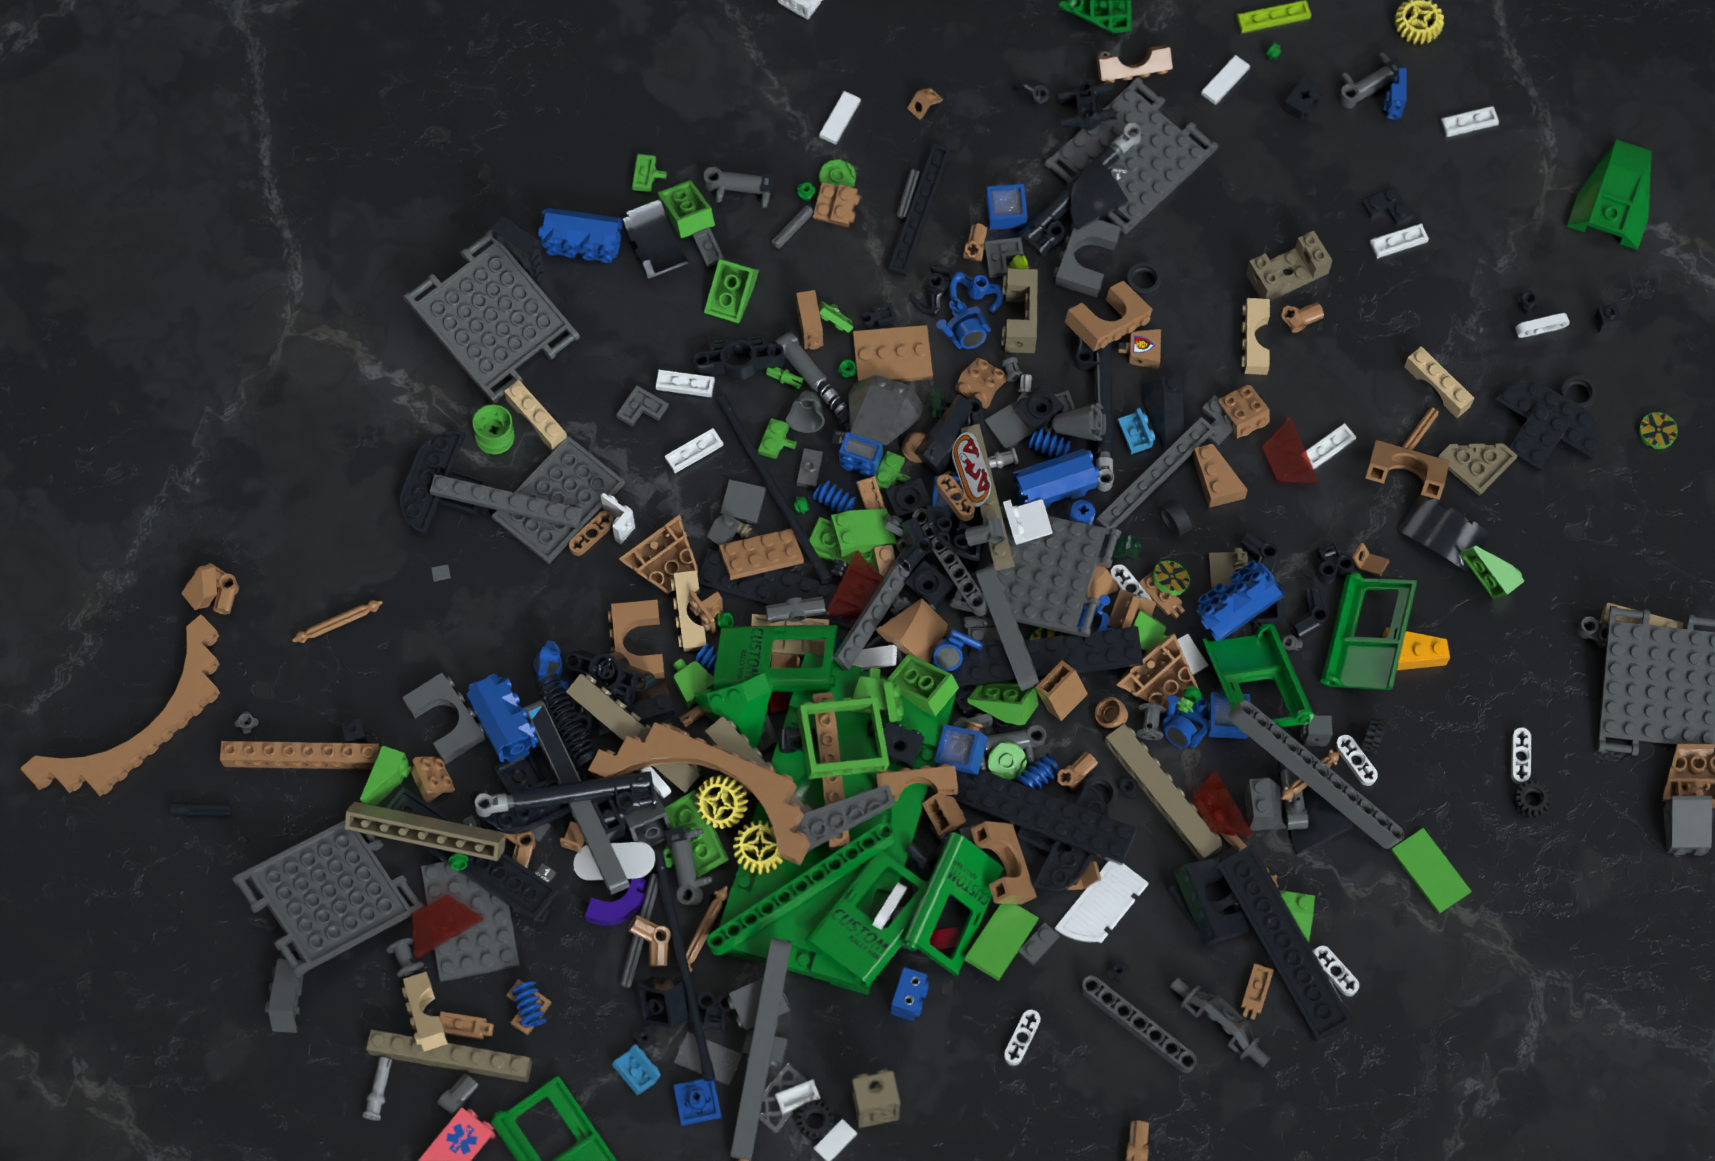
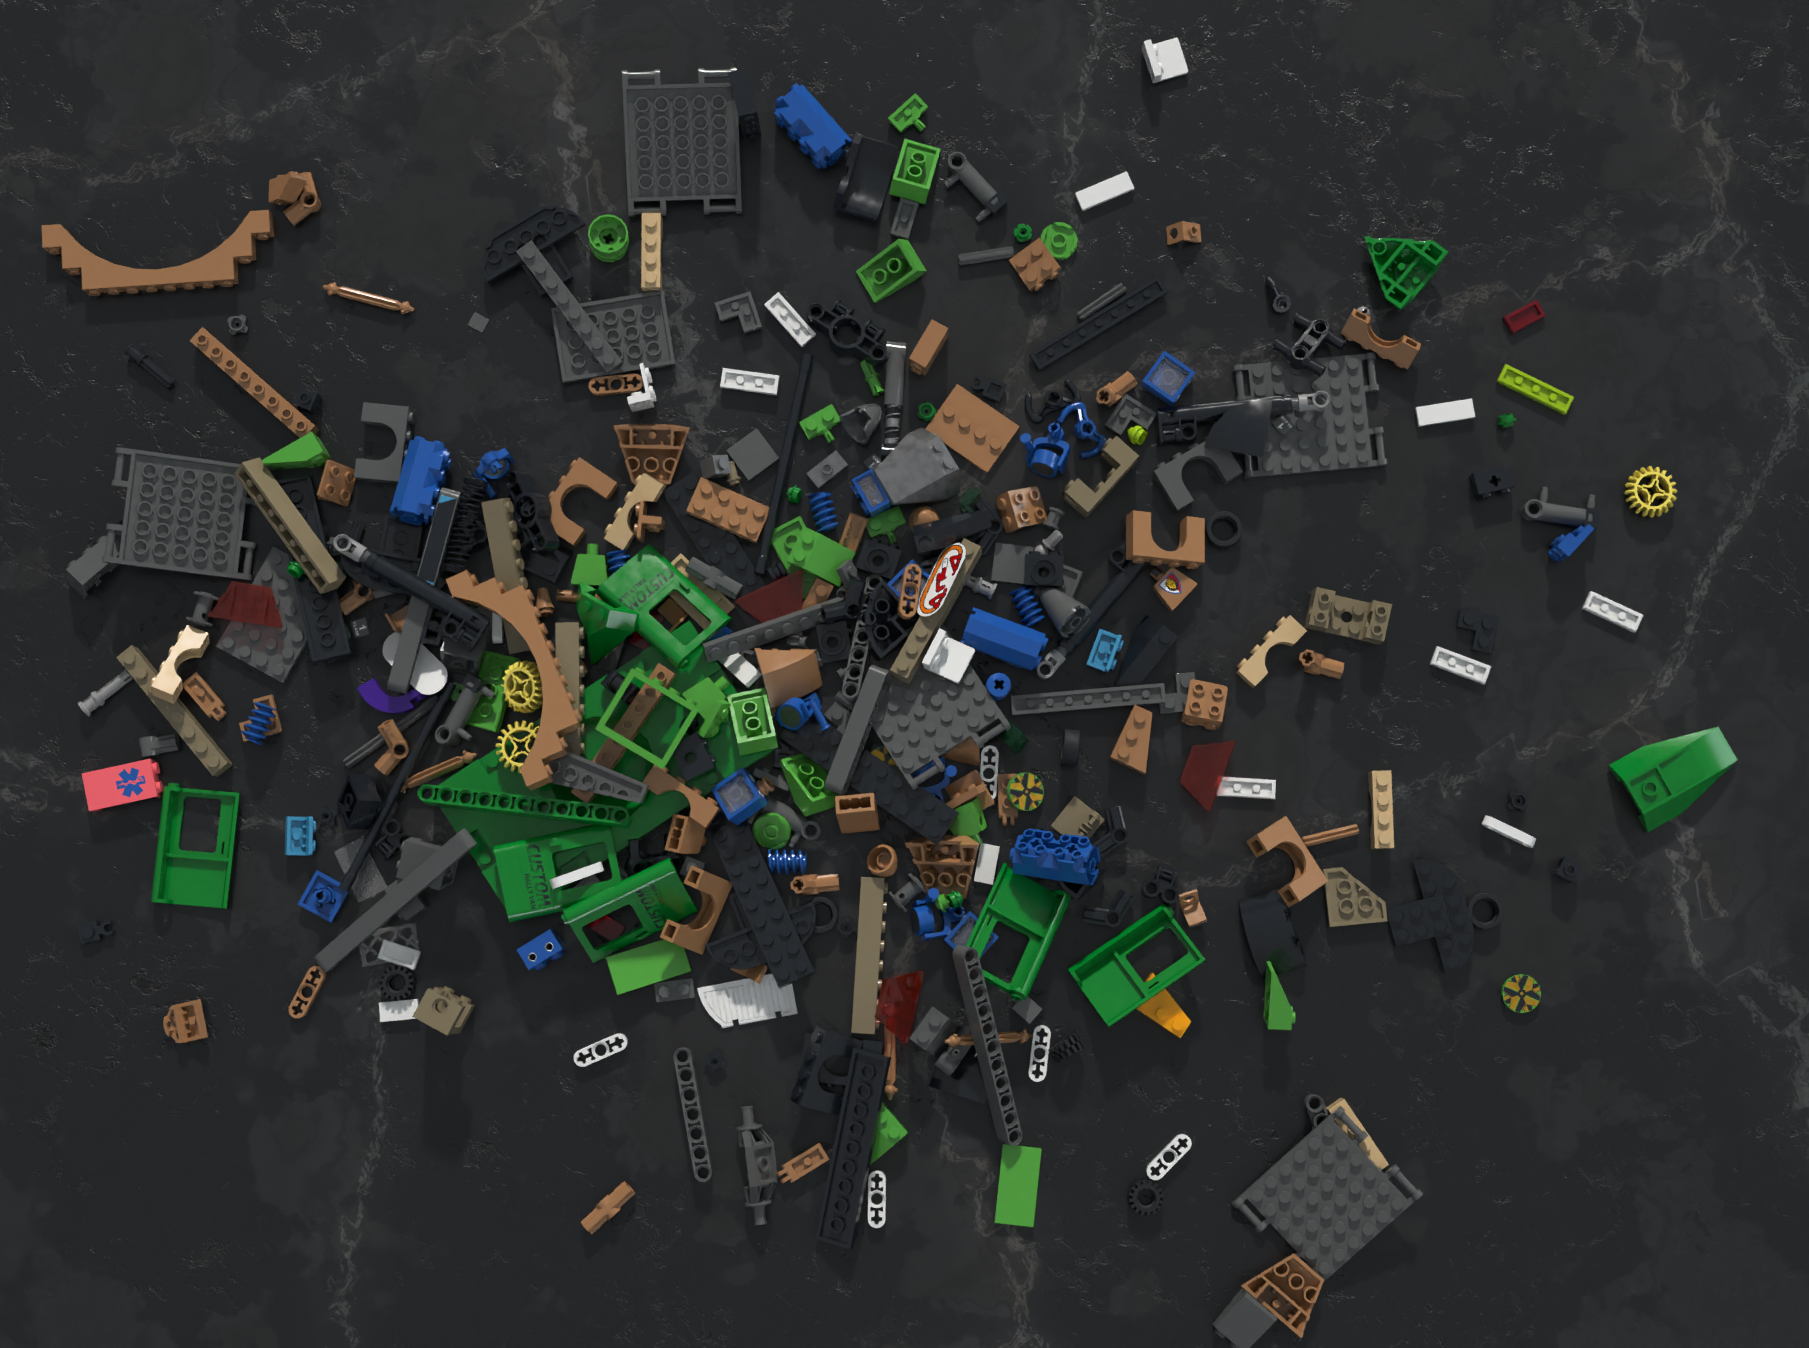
camera: 40 degrees right, 15 degrees up
(724, 619) = (656, 540): green plate -> none
(833, 314) = (951, 360): bright green plate -> none
(990, 532) = (904, 645): dark grey piece -> none
(1292, 643) = (1070, 922): dark grey pin -> none

